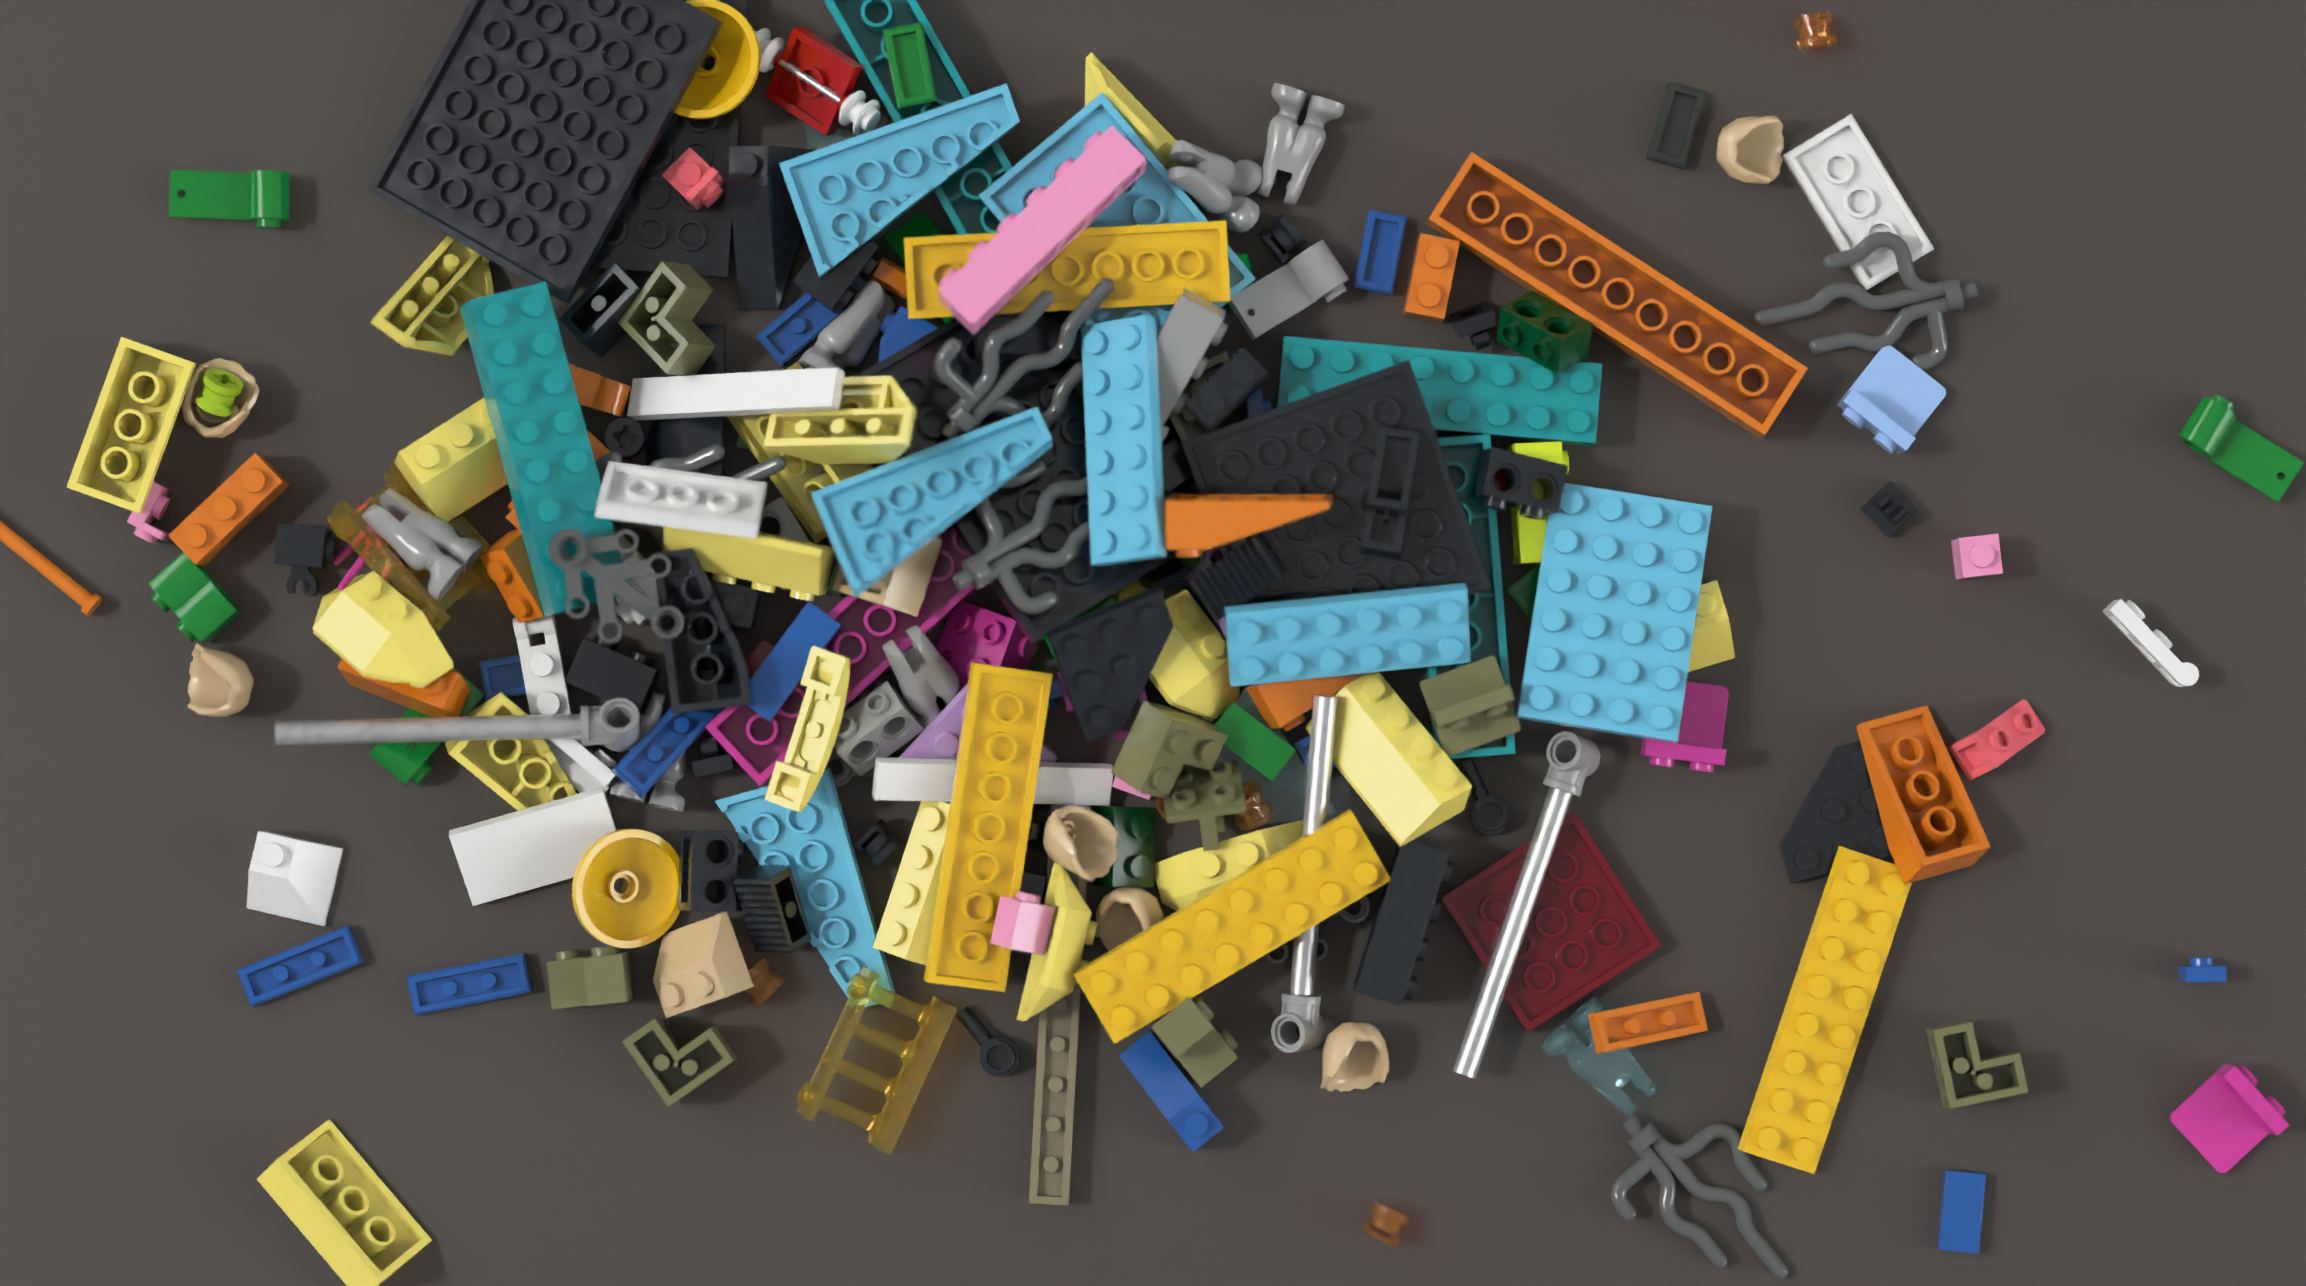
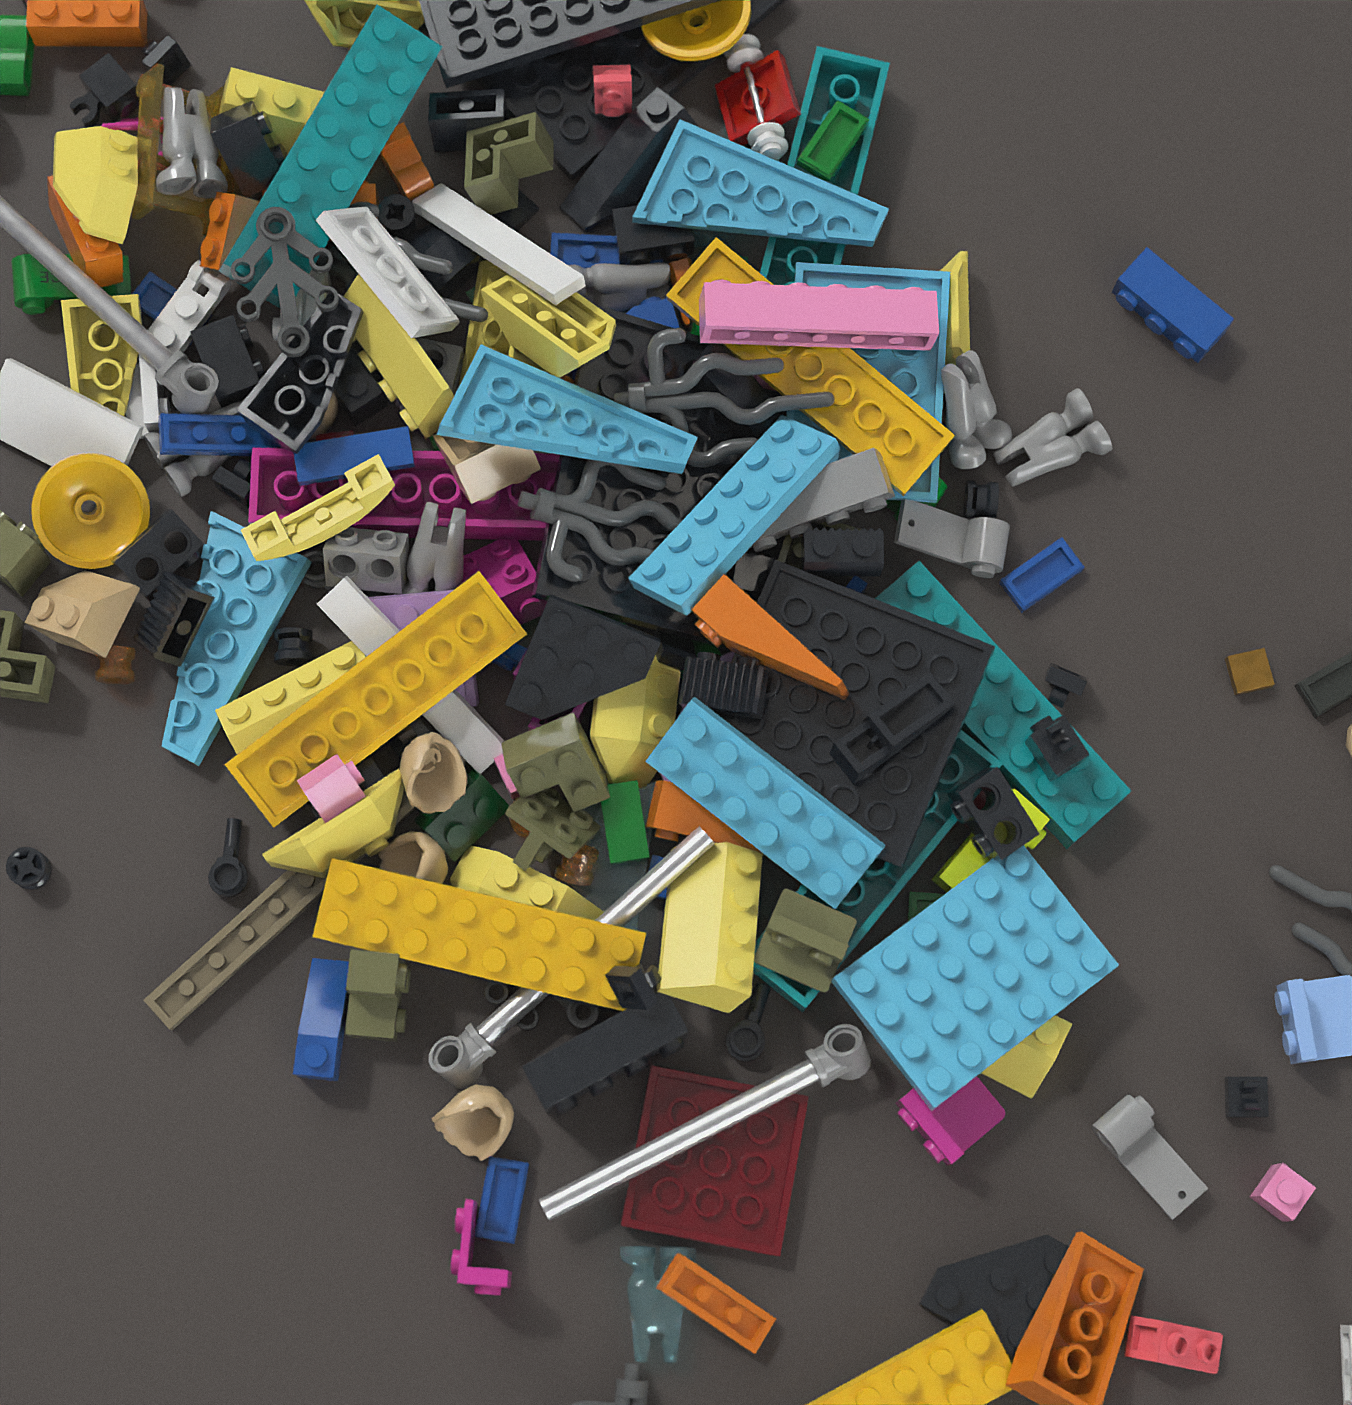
camera: 45 degrees right, 10 degrees down
(322, 485) = (167, 54): none -> black tile
(471, 499) = (248, 147): none -> black brick
(843, 1193) = (21, 864): none -> black wheel
(898, 1091) = (133, 830): clear yellow fence -> none
(1381, 858) = (634, 986): none -> black tile
(1386, 1220) = (385, 1265): clear orange wheel -> none
(1424, 1095) = (501, 1199): none -> blue tile
(1431, 278) = (1062, 622): orange brick -> none
(1470, 1162) = (485, 1280): none -> dark pink bracket
(1519, 387) = (1056, 746): none -> black brick
(1544, 332) = (1110, 730): dark green brick -> none
(1603, 180) = (1249, 671): none -> pearl gold tile
(1618, 294) = (1186, 757): orange brick -> none
(1857, 620) = (1148, 1158): none -> light grey door

